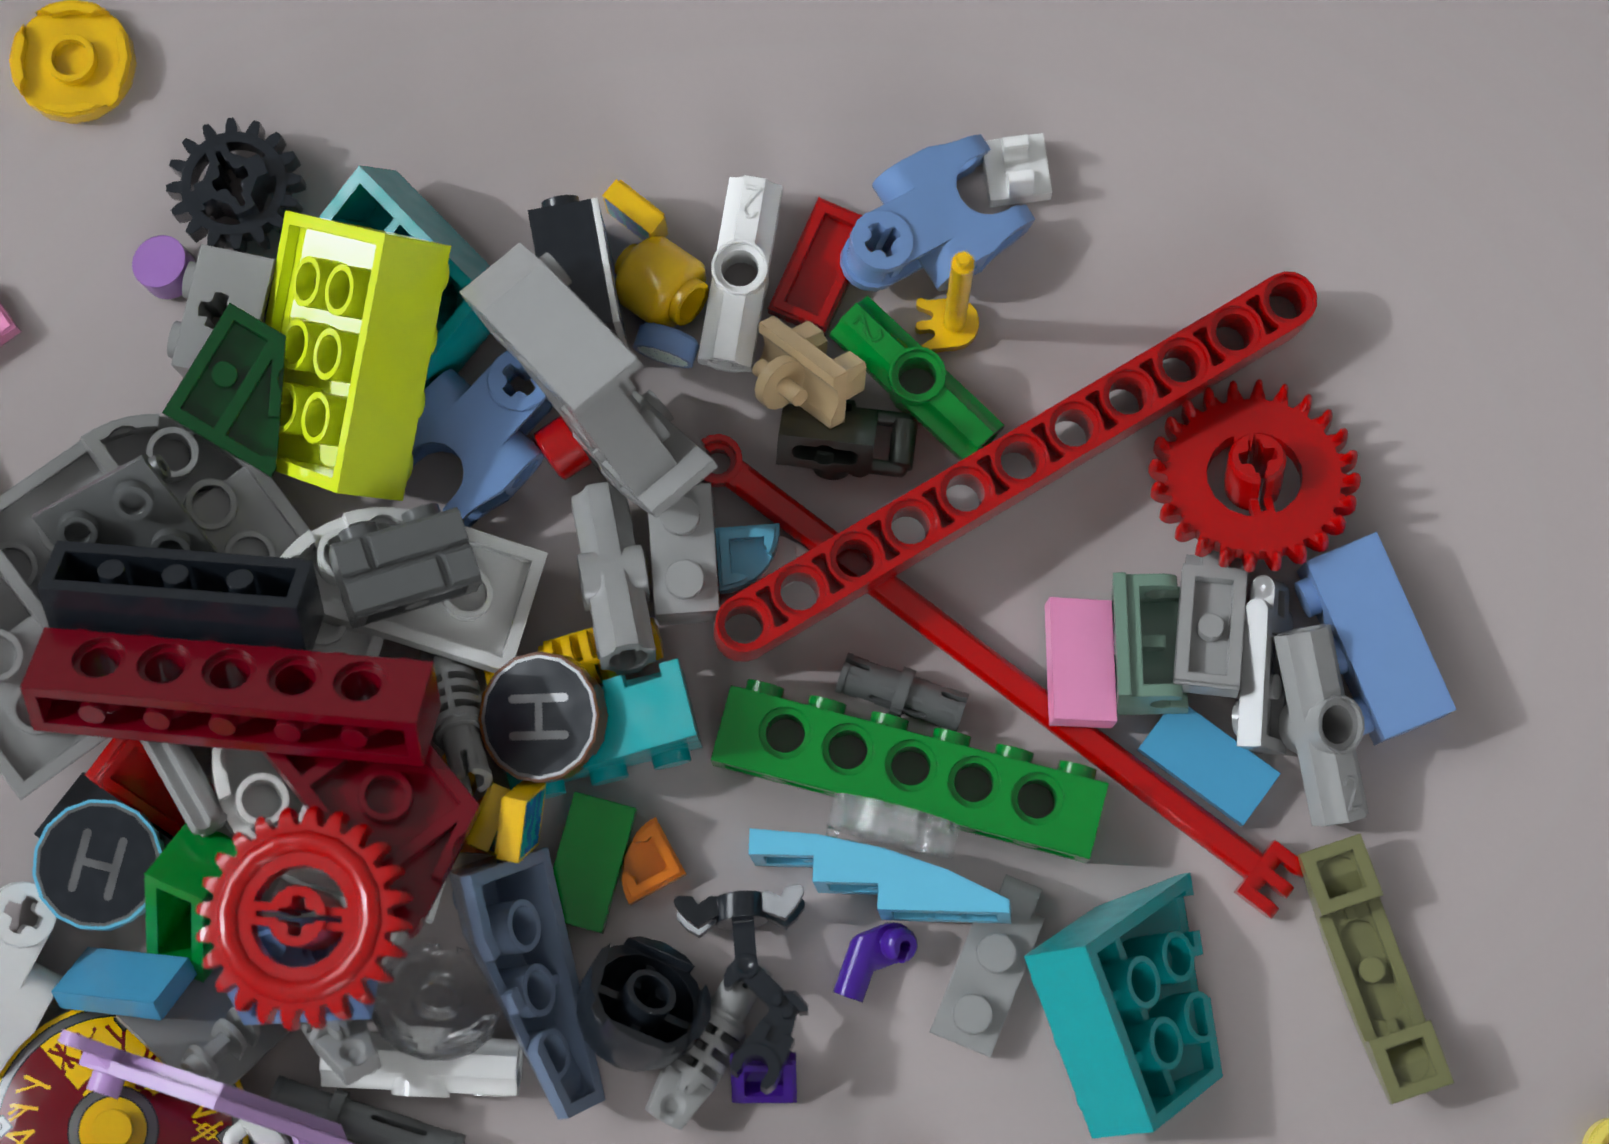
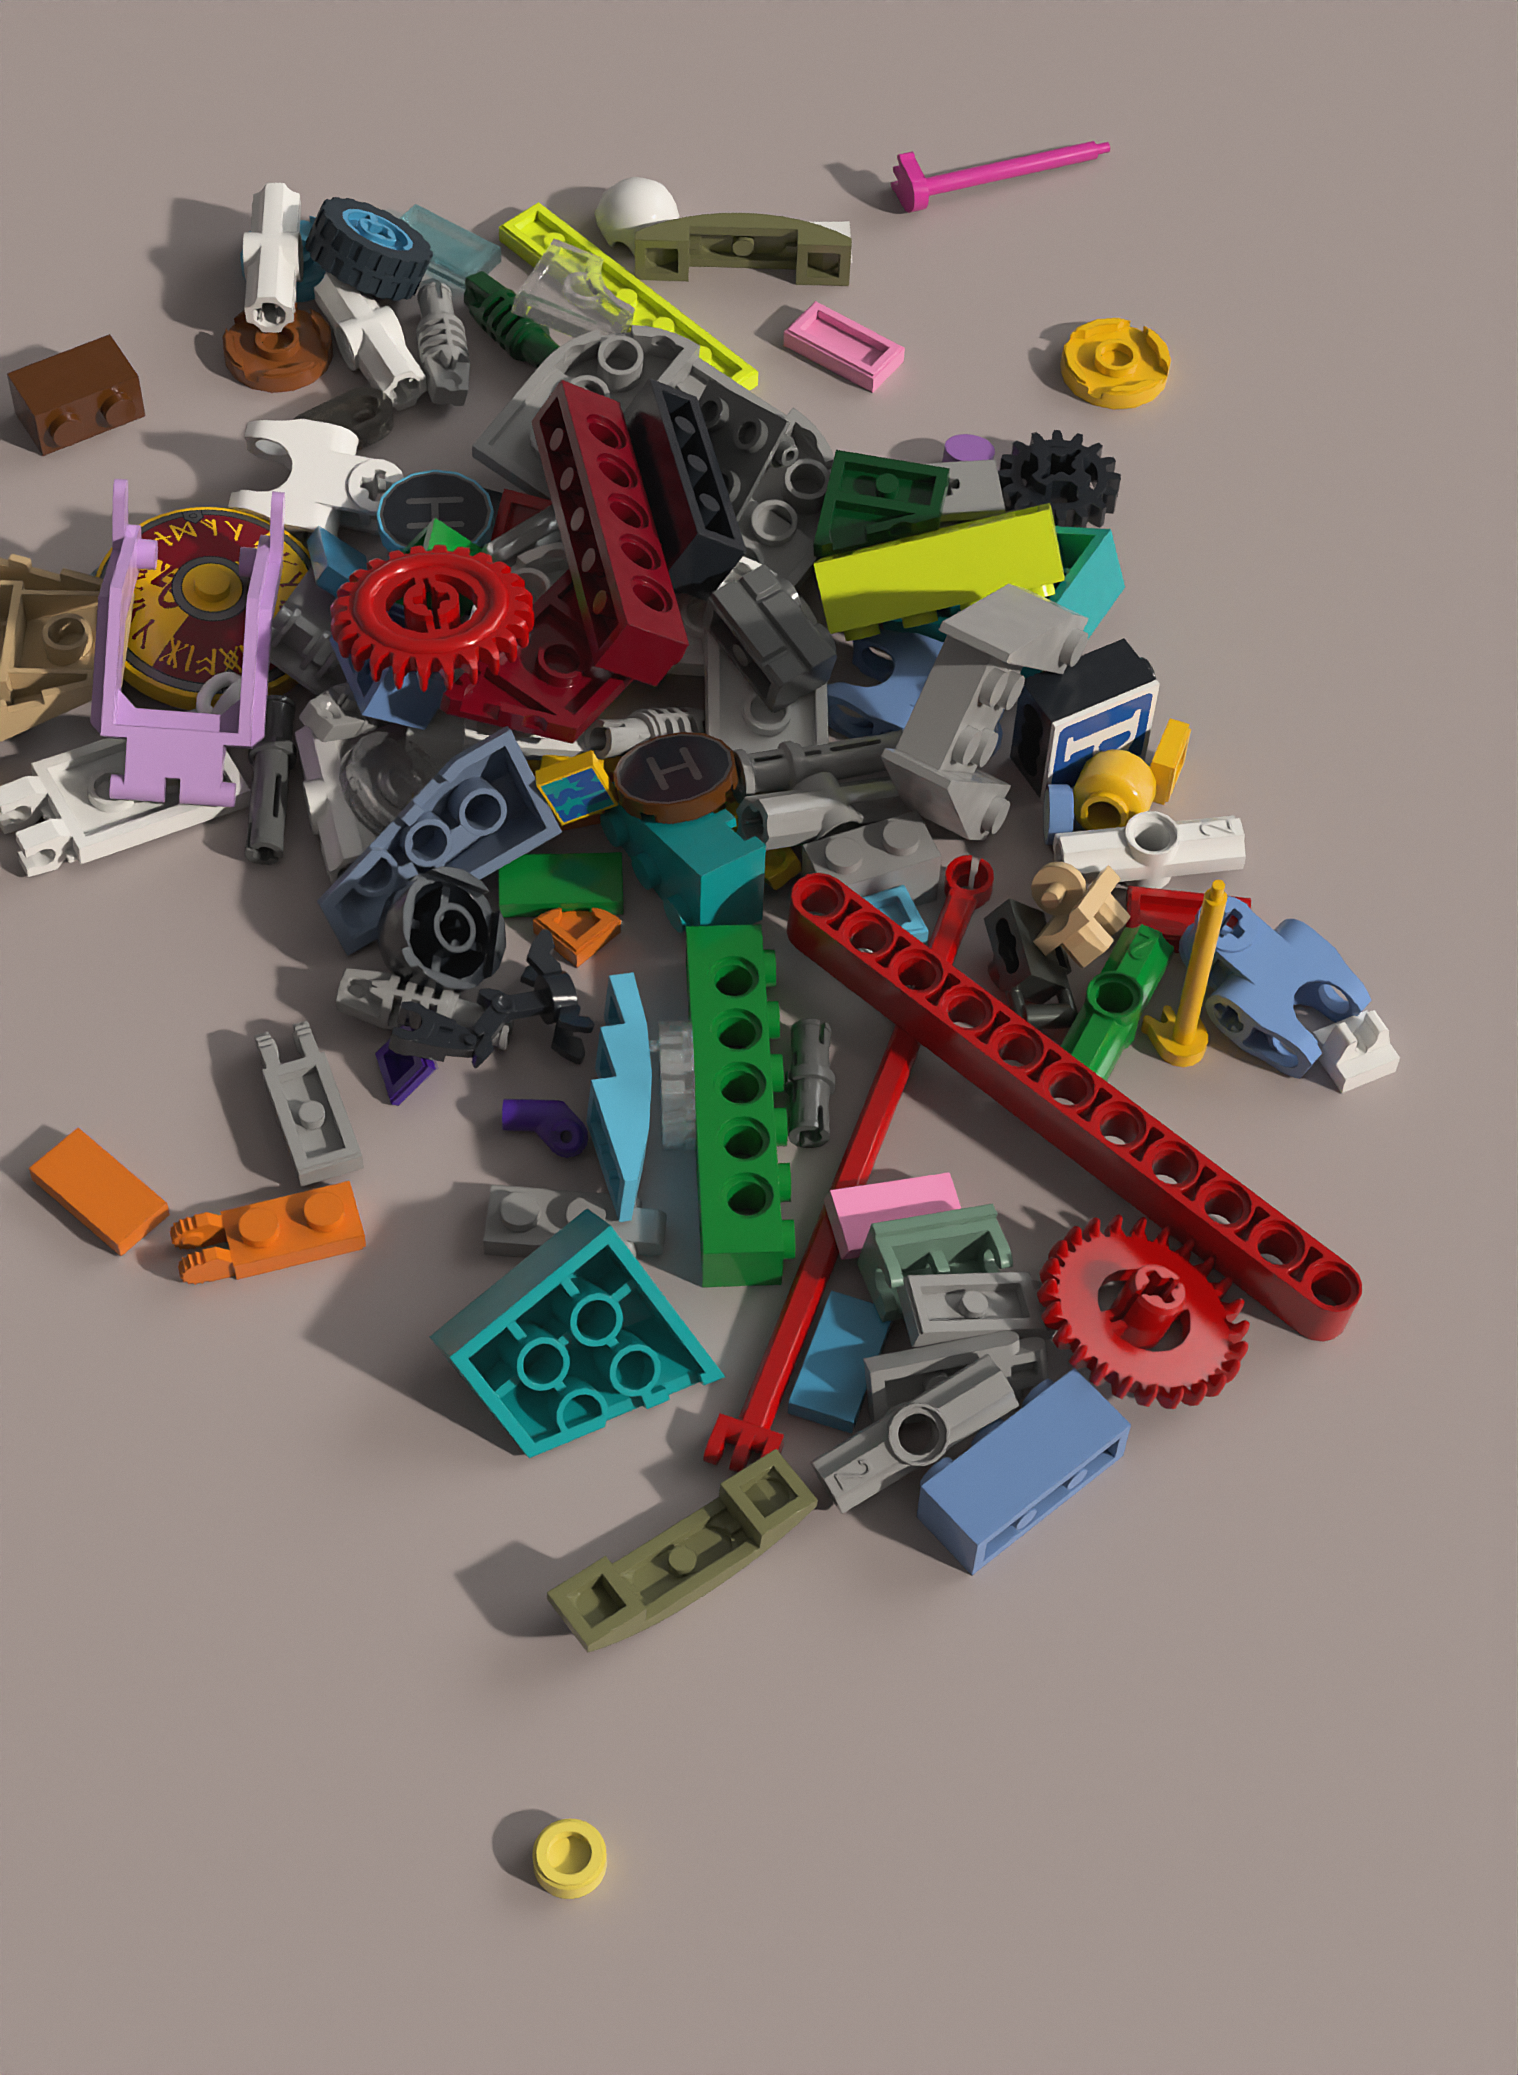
camera: 65 degrees right, 25 degrees down
(553, 591) = (790, 763): none -> light grey pin

